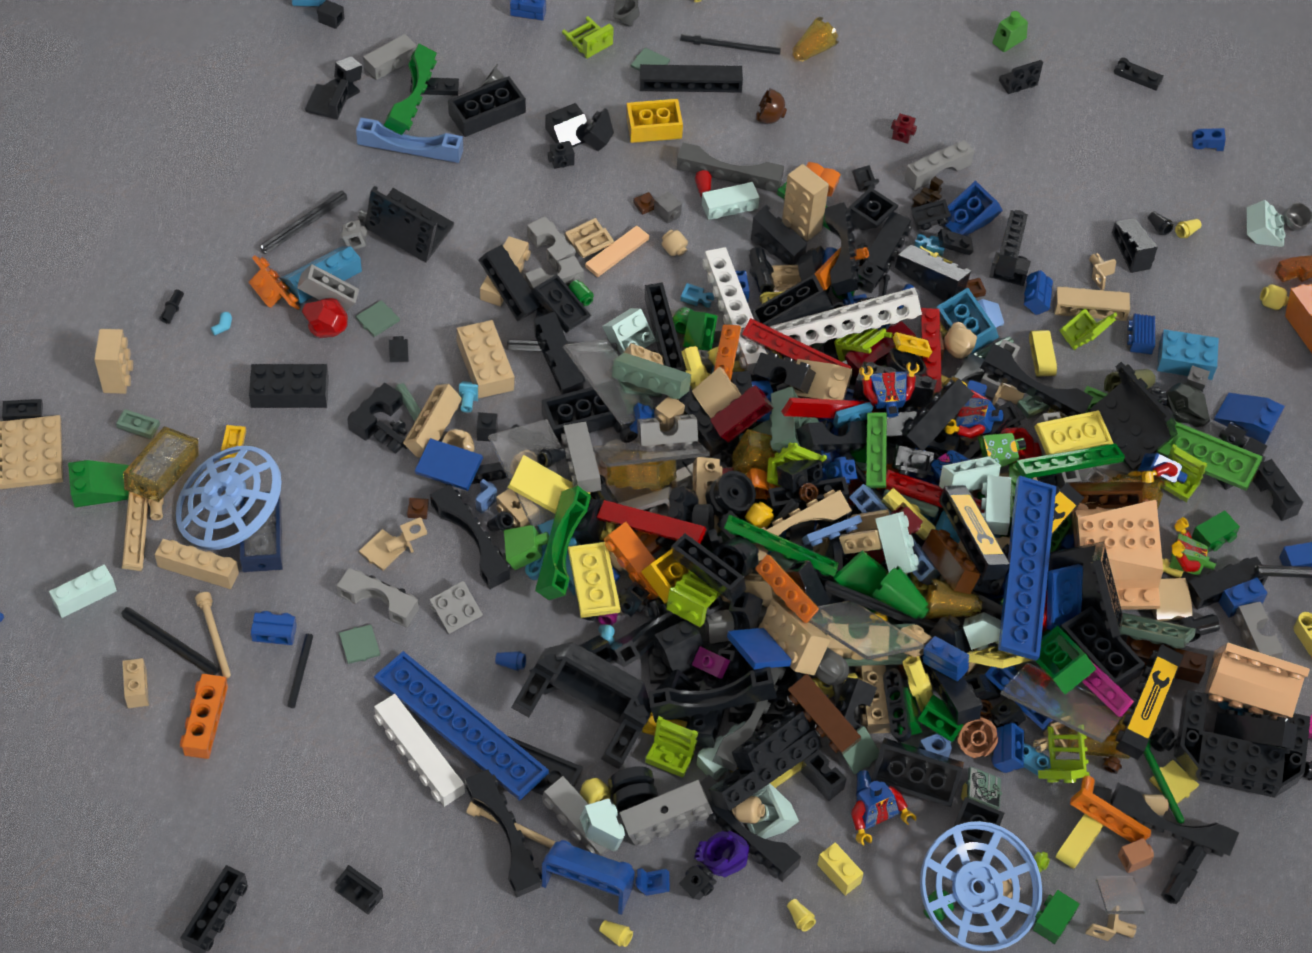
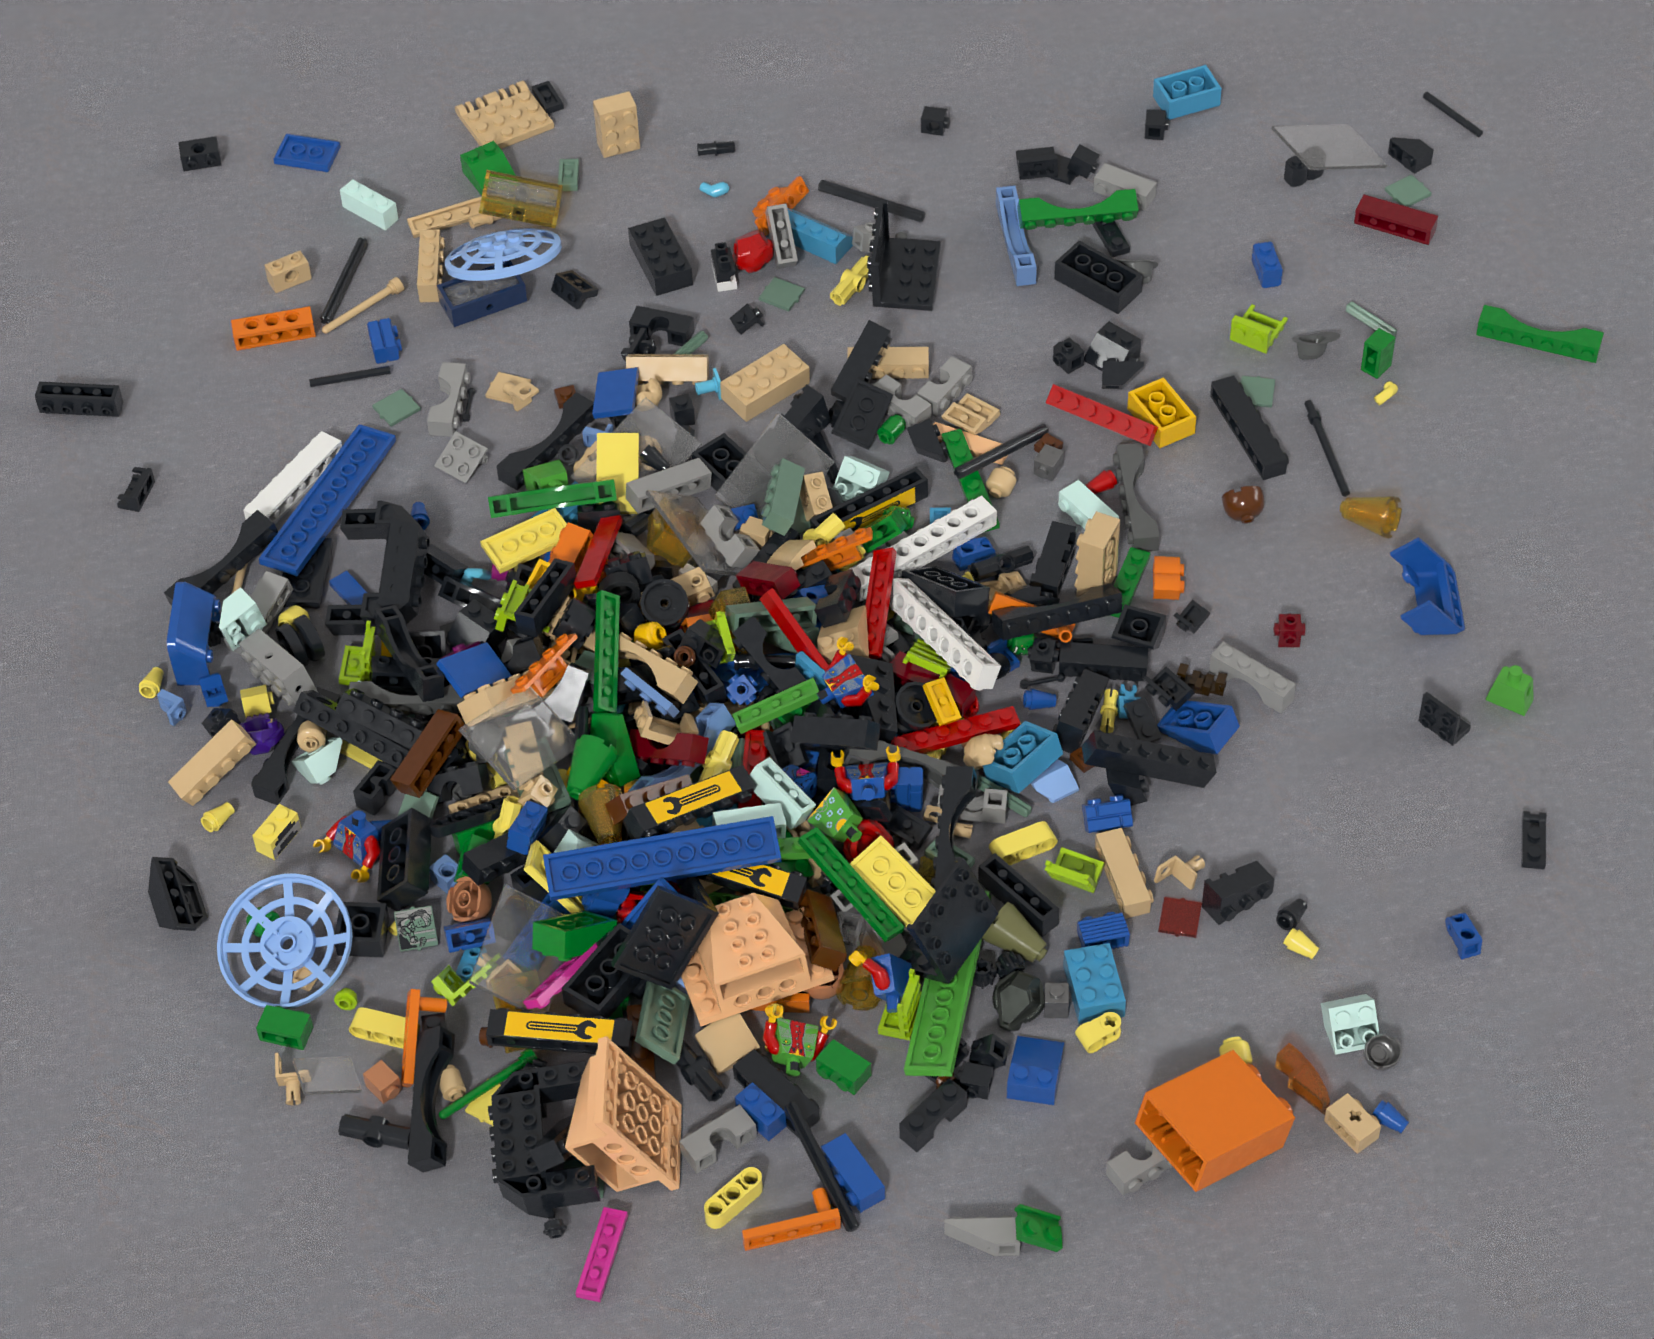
camera: 75 degrees right, 5 degrees down
(233, 437) = (578, 243): yellow plate -> none
(236, 148) = (934, 121): none -> black brick
(292, 462) = (573, 288): none -> black bracket
(331, 344) = (723, 267): none -> black hips
(395, 263) = (851, 282): none -> light yellow piece
(582, 737) = (348, 588): none -> blue tile
(607, 273) = (926, 441): none -> black slope
(638, 156) = (1101, 415): none -> red plate
(645, 229) = (1001, 451): none -> black axle
(654, 919) = (172, 705): none -> medium blue bracket
(656, 261) = (959, 454): none -> green plate
(681, 847) = (256, 700): none -> light yellow brick
(752, 897) = (212, 763): none -> tan brick
(897, 542) = (651, 746): light aqua brick -> none
(905, 40) = (1435, 590): none -> blue windscreen
(1093, 369) = (1011, 887): none -> black brick
(1138, 286) = (1180, 917): none -> clear red piece
(1231, 366) = (1098, 1032): none -> light yellow piece

